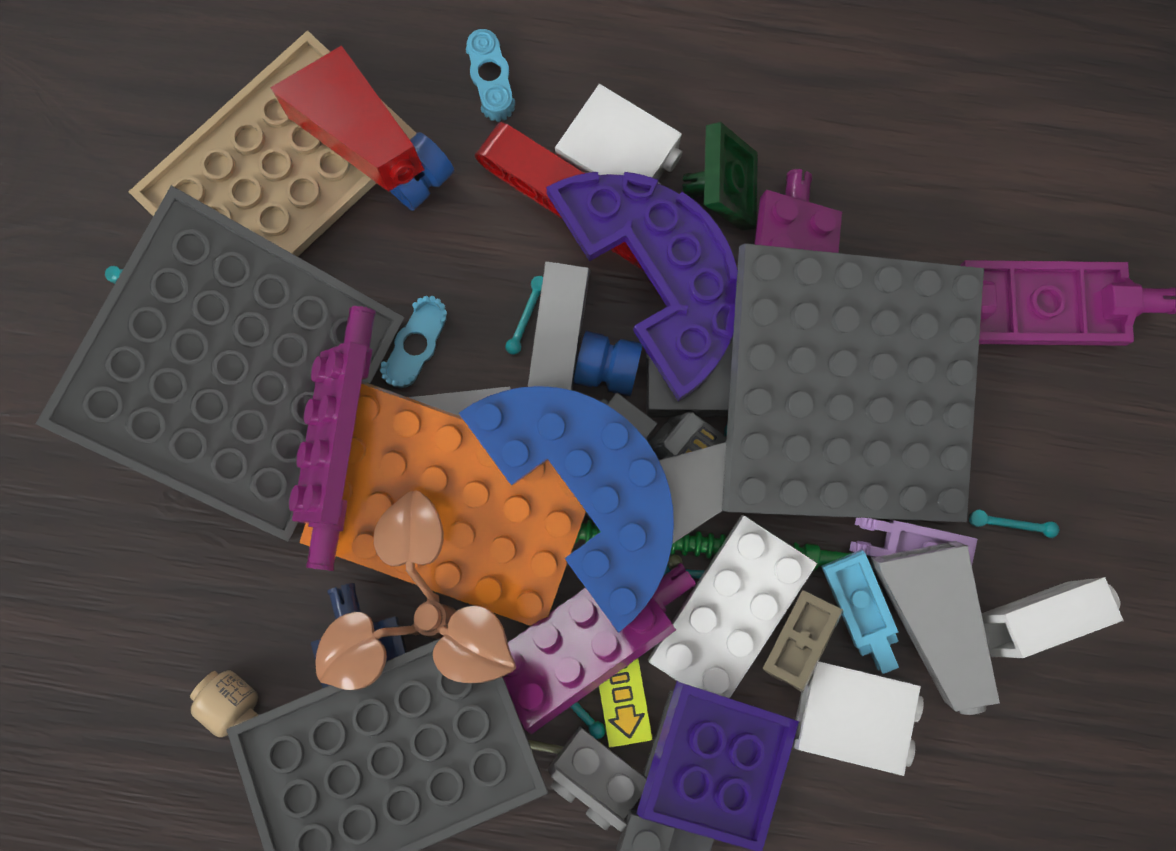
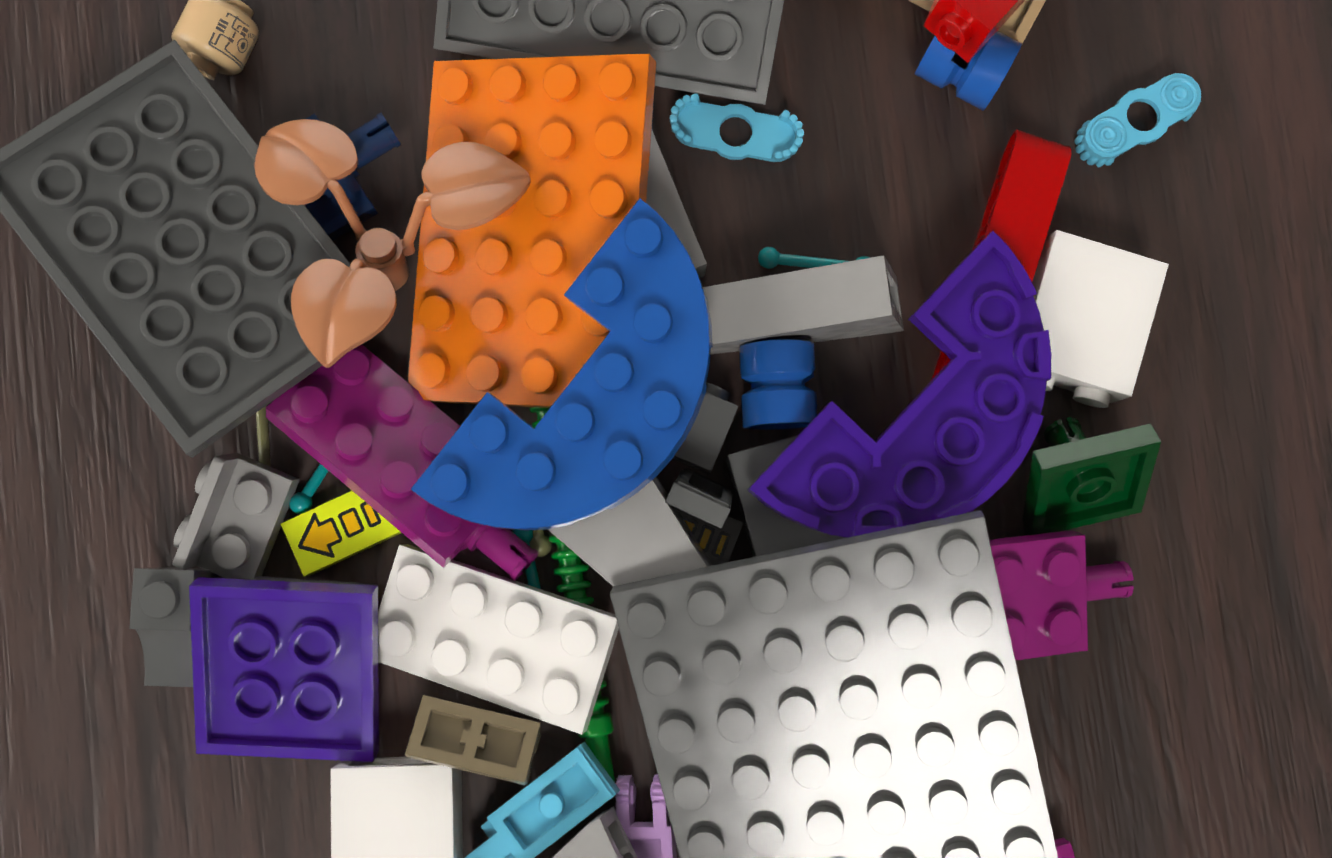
camera: 75 degrees right, 5 degrees up
(329, 437) = (545, 47): magenta plate -> none

